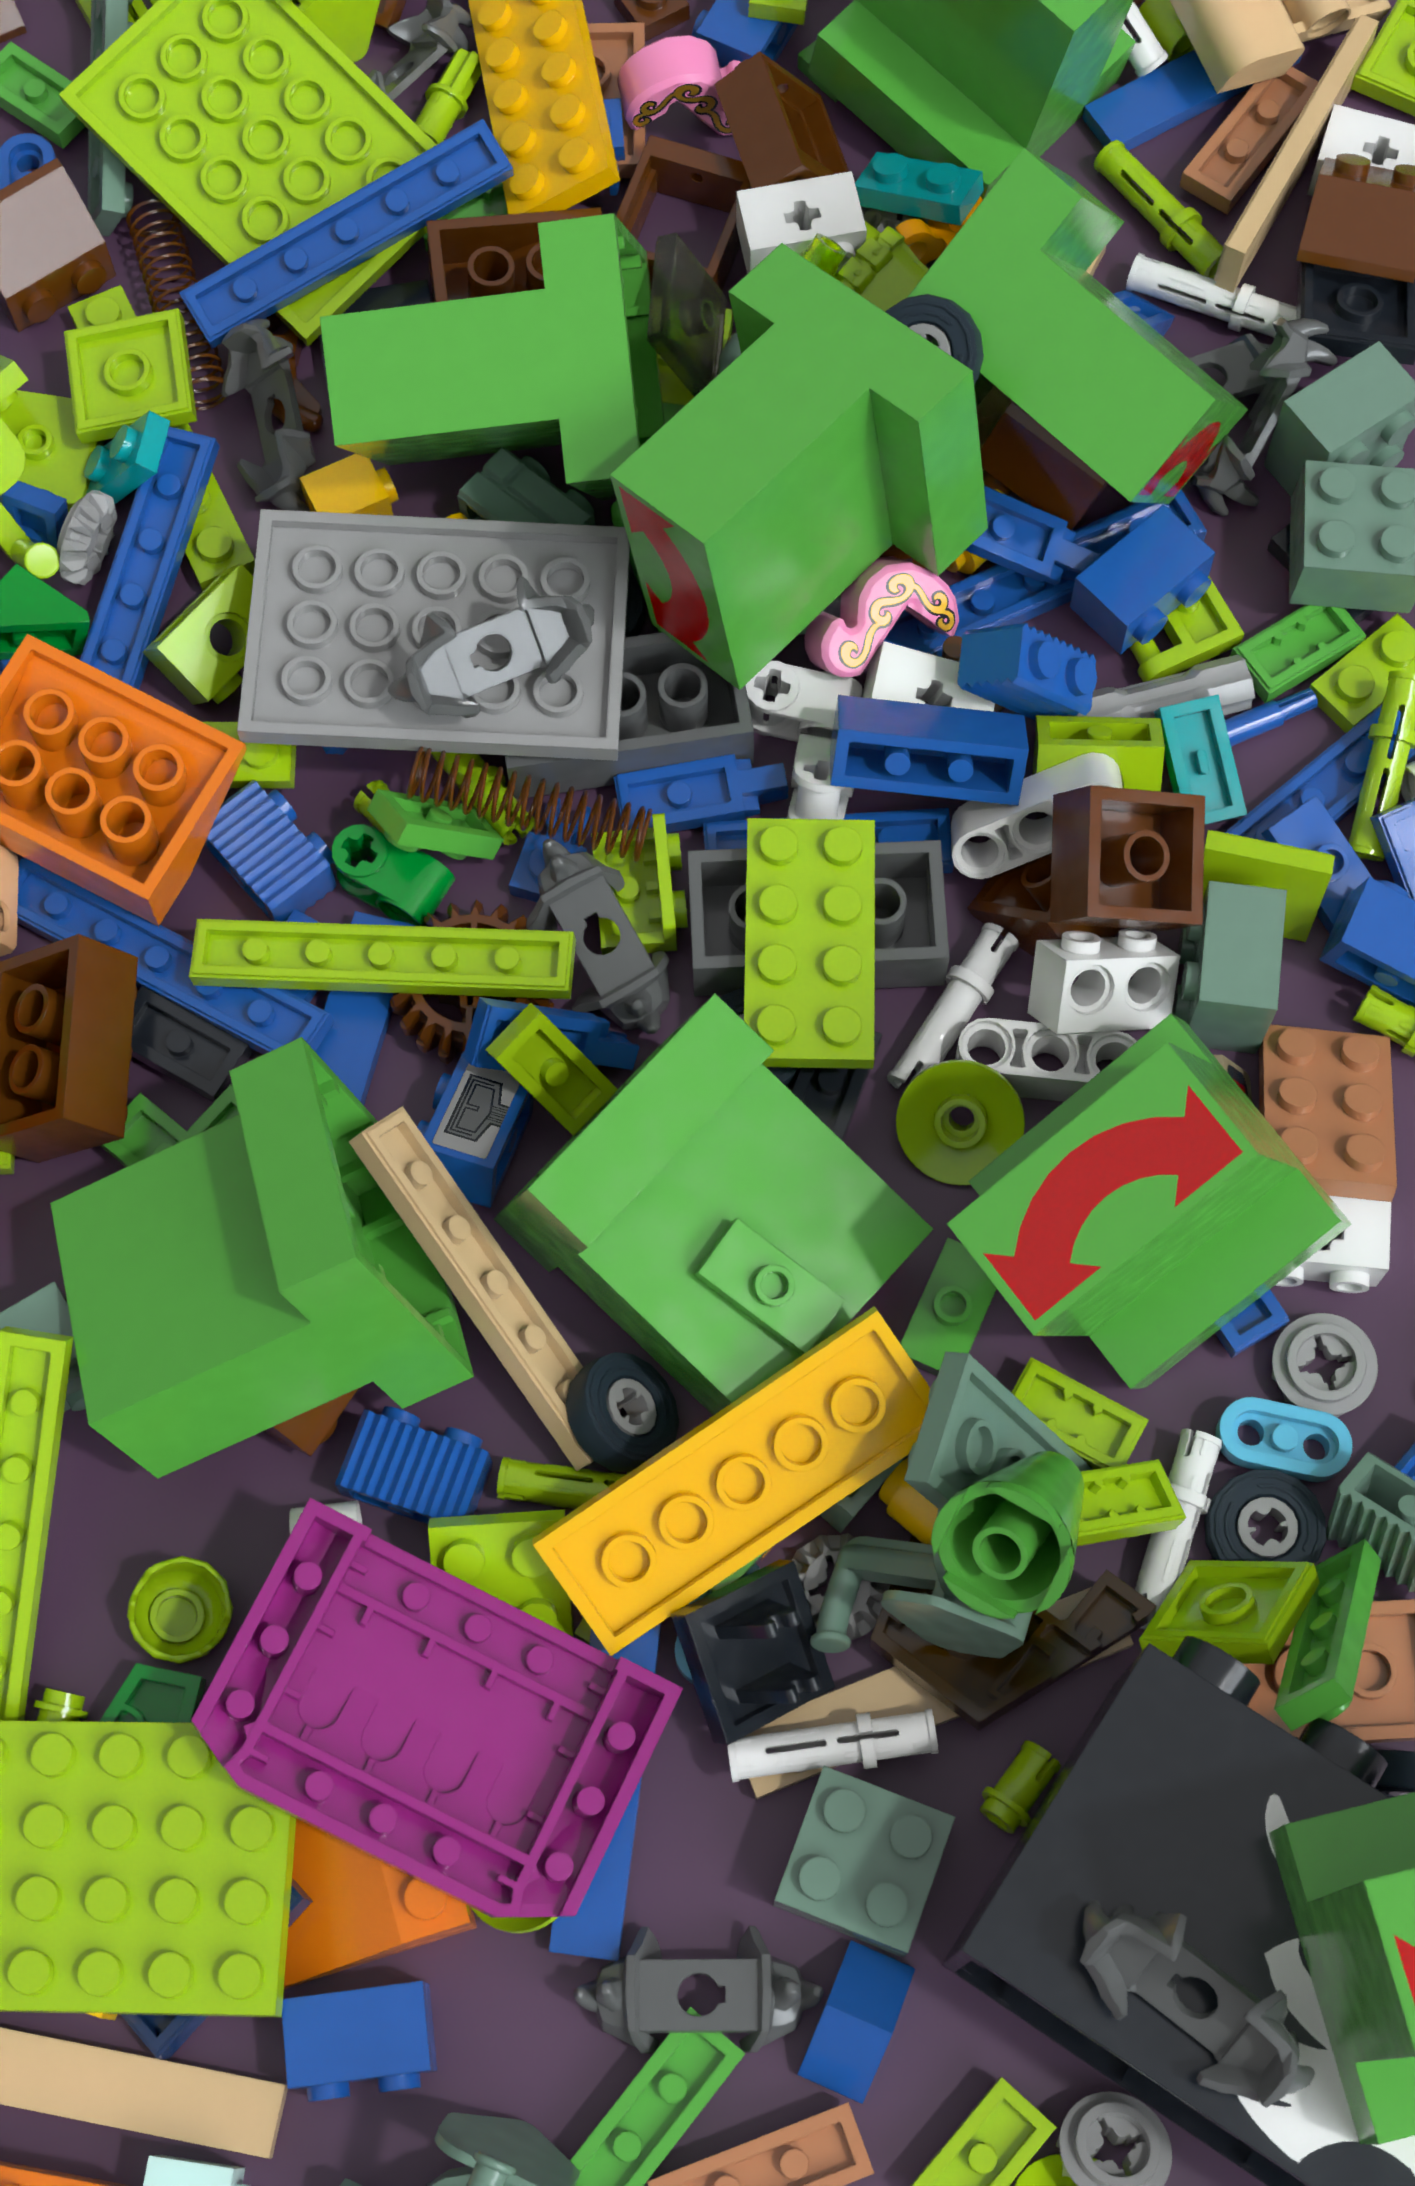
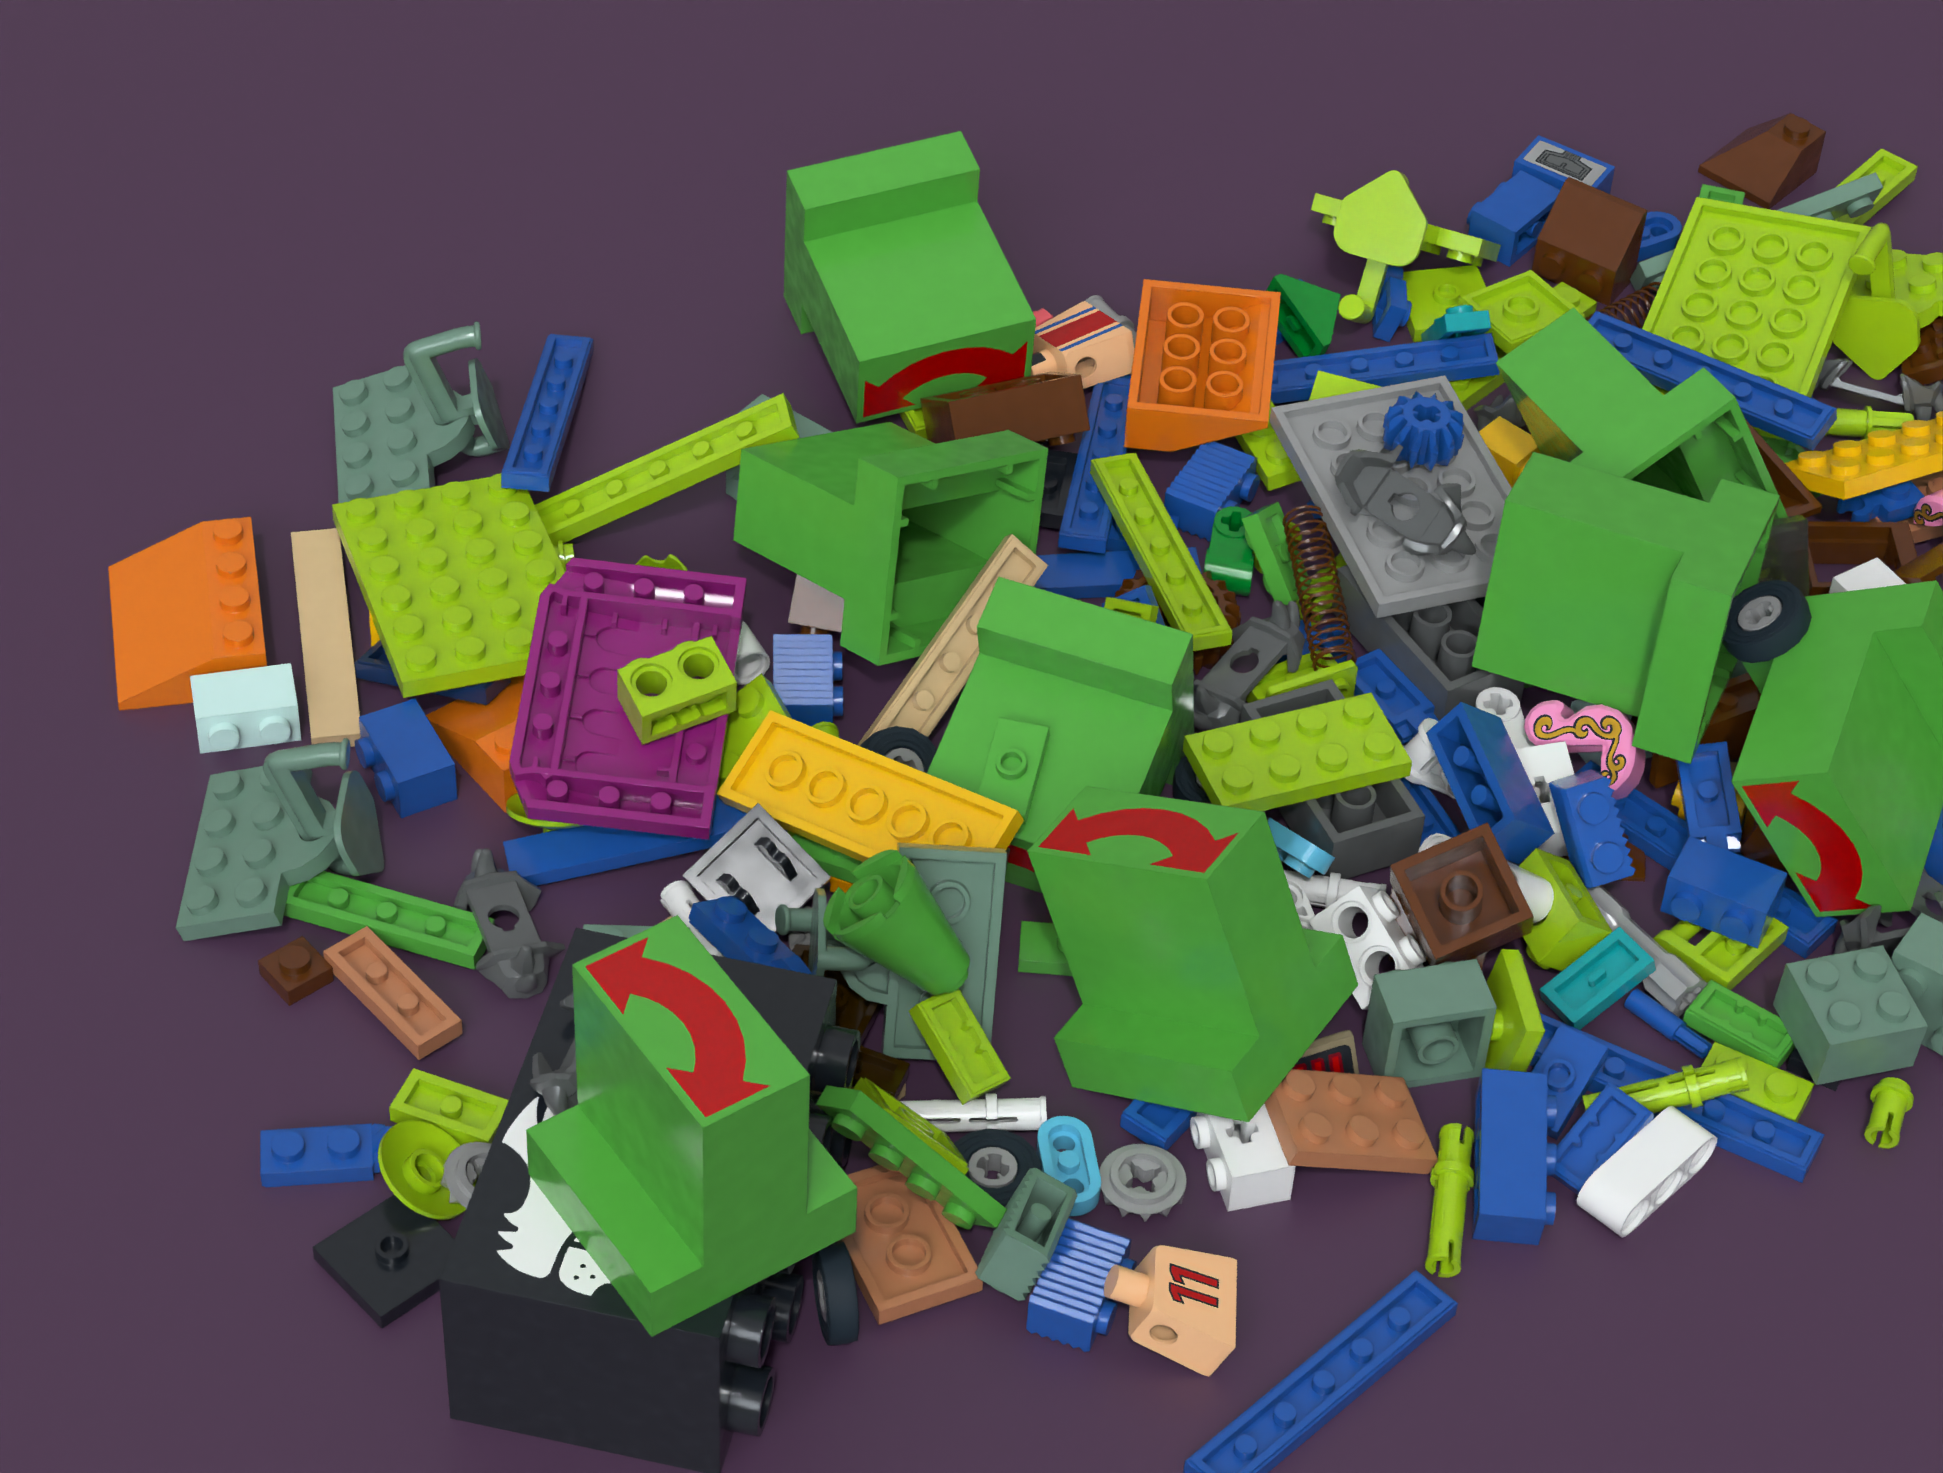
camera: 65 degrees right, 25 degrees down
(86, 537) = (1382, 317): light grey gear -> none
(376, 554) = (1425, 429): none -> blue gear
(481, 1656) = (680, 698): none -> lime brick
(856, 2022) = (507, 1015): blue slope -> none
(886, 1700) = (742, 935): none -> blue hinge
(923, 997) = (1299, 852): none -> medium azure plate
(1082, 1418) = (1023, 1033): lime plate -> none

